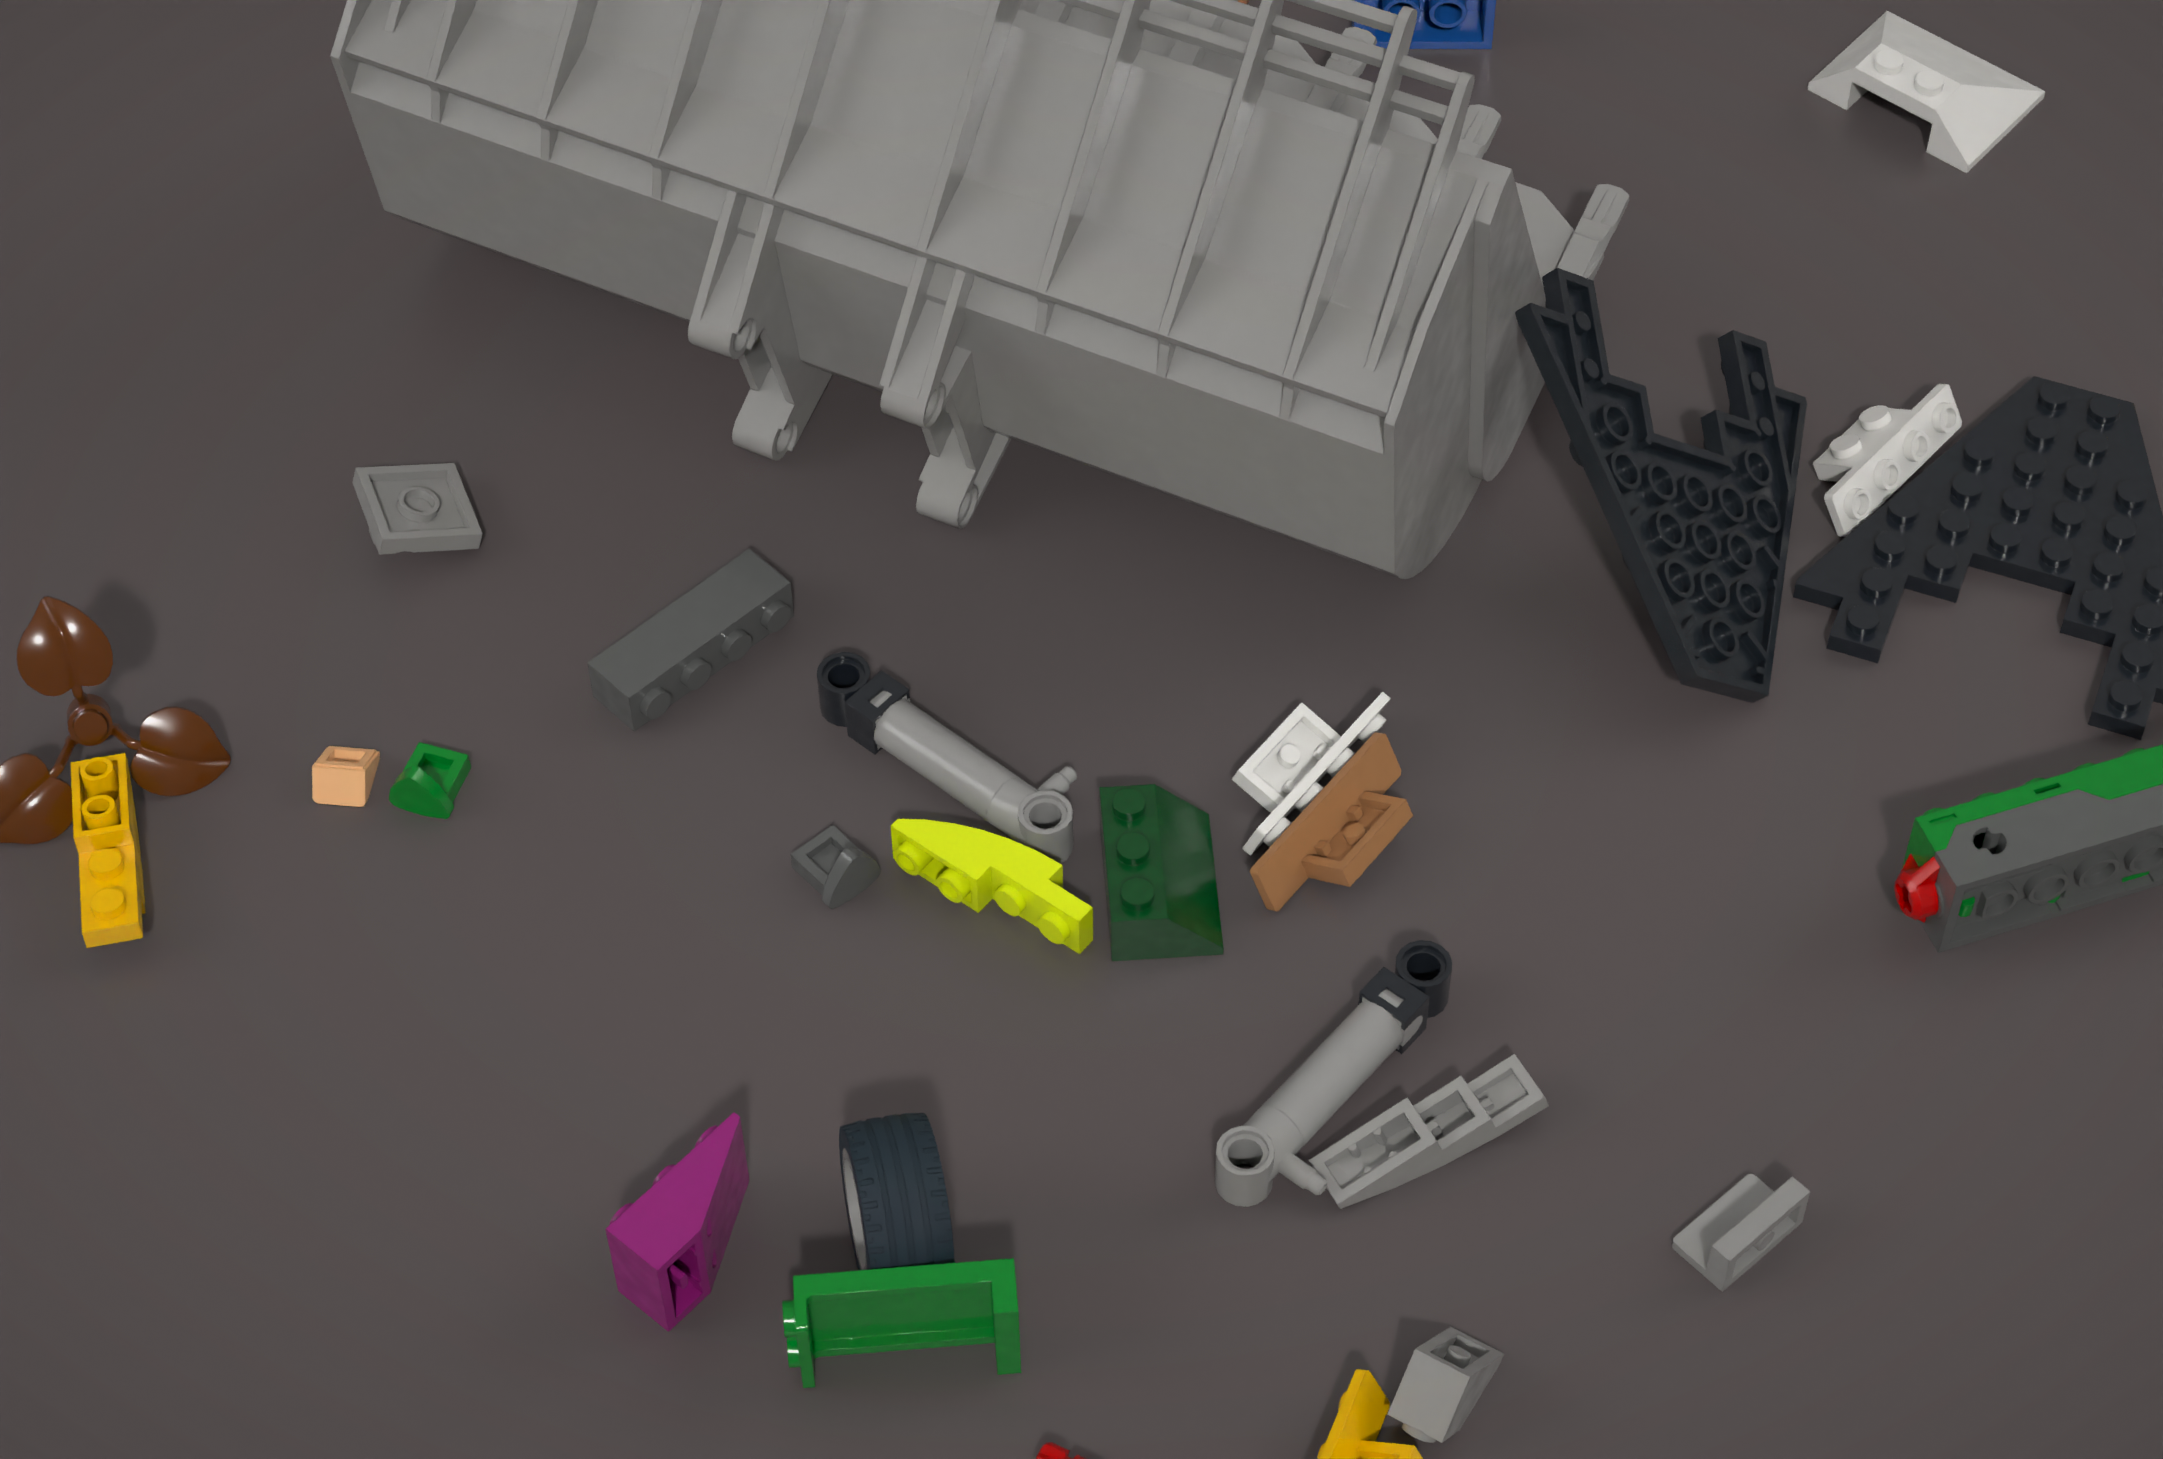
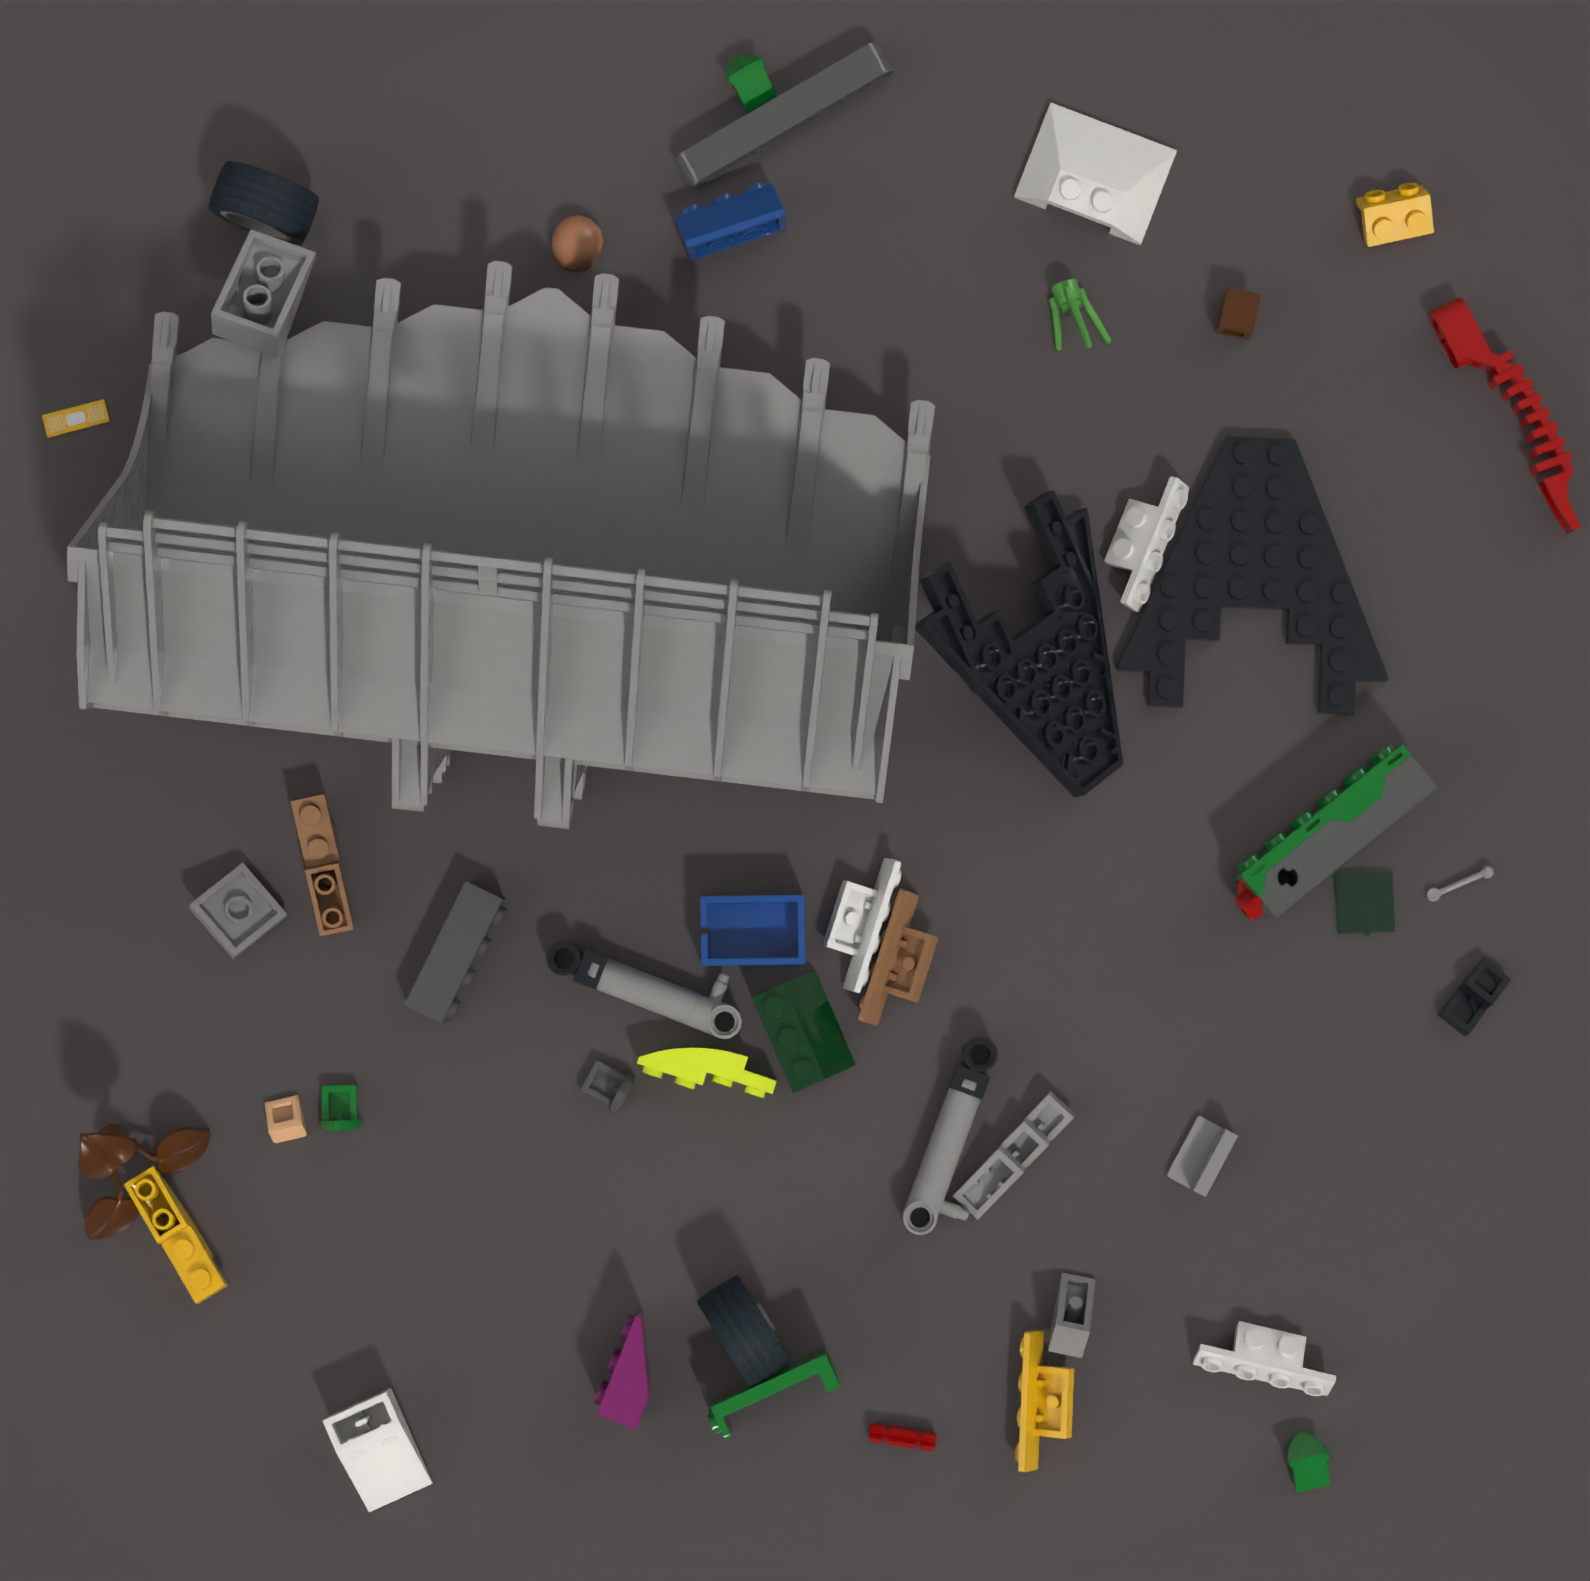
camera: 20 degrees left, 35 degrees up
(239, 1217) = (377, 1450): none -> white slope
(564, 490) = (323, 864): none -> medium nougat slope
(1136, 721) = (753, 930): none -> blue piece
(1852, 190) = (1069, 299): none -> bright green plant
(2083, 254) = (1238, 313): none -> reddish brown panel
(2104, 971) = (1365, 902): none -> clear green piece

